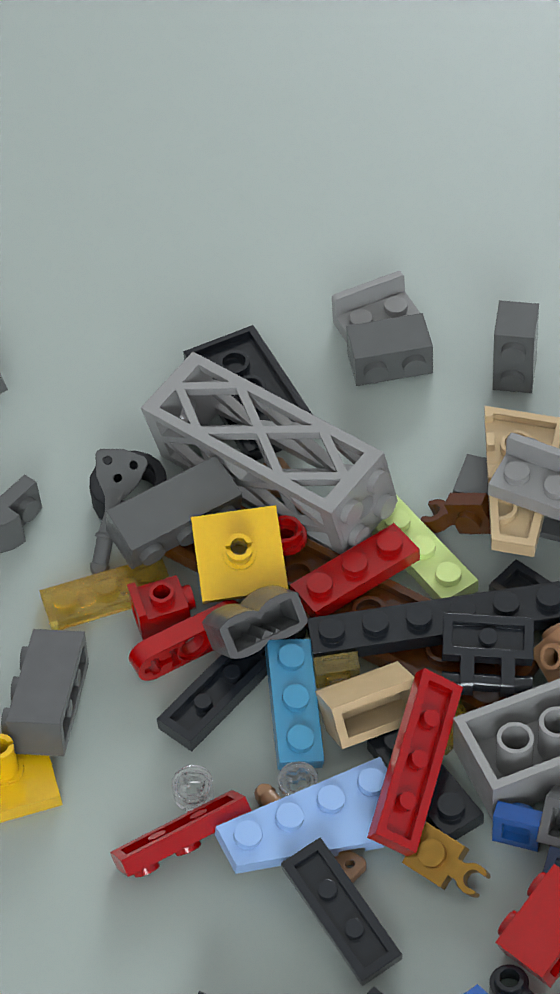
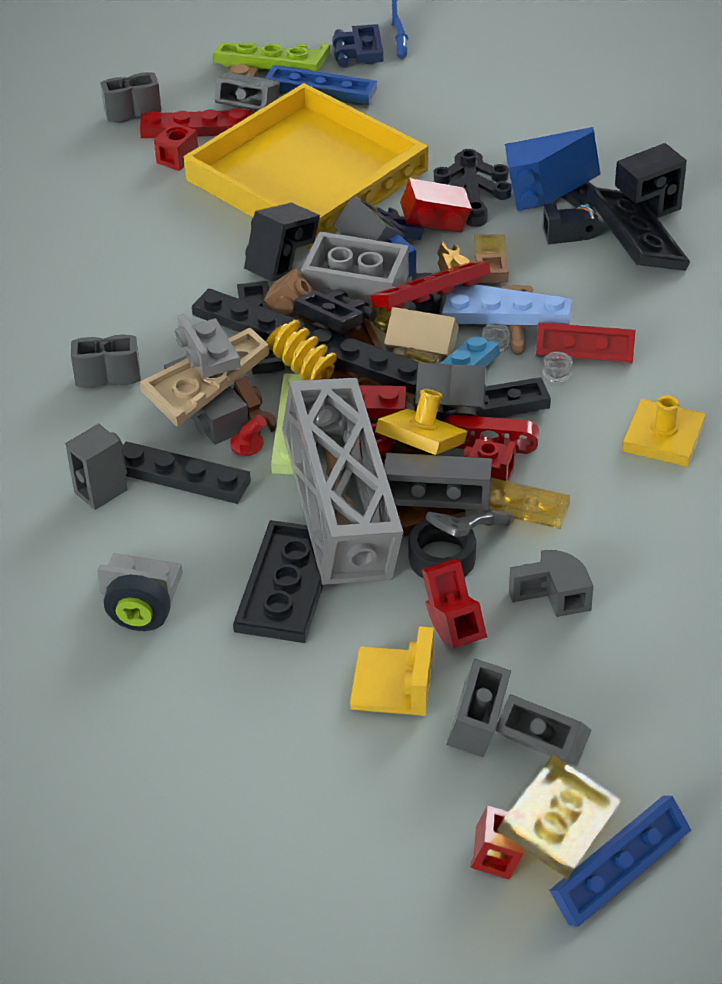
camera: 145 degrees left, 5 degrees down
(46, 692) = (607, 440): dark grey brick -> none
(62, 433) = (450, 608): none -> red brick
(69, 360) = (395, 678): none -> yellow bracket
(337, 268) = (137, 602): none -> black wheel
(341, 911) = (532, 265): black plate -> none
(389, 349) = (166, 535): dark grey brick -> none
(395, 887) = (498, 267): none -> medium nougat plate
(427, 485) = (248, 441): none -> red plate
(427, 921) = (489, 244): none -> clear yellow plate
(447, 427) = (185, 472): none -> black plate
(455, 569) = (301, 352): none -> yellow piece

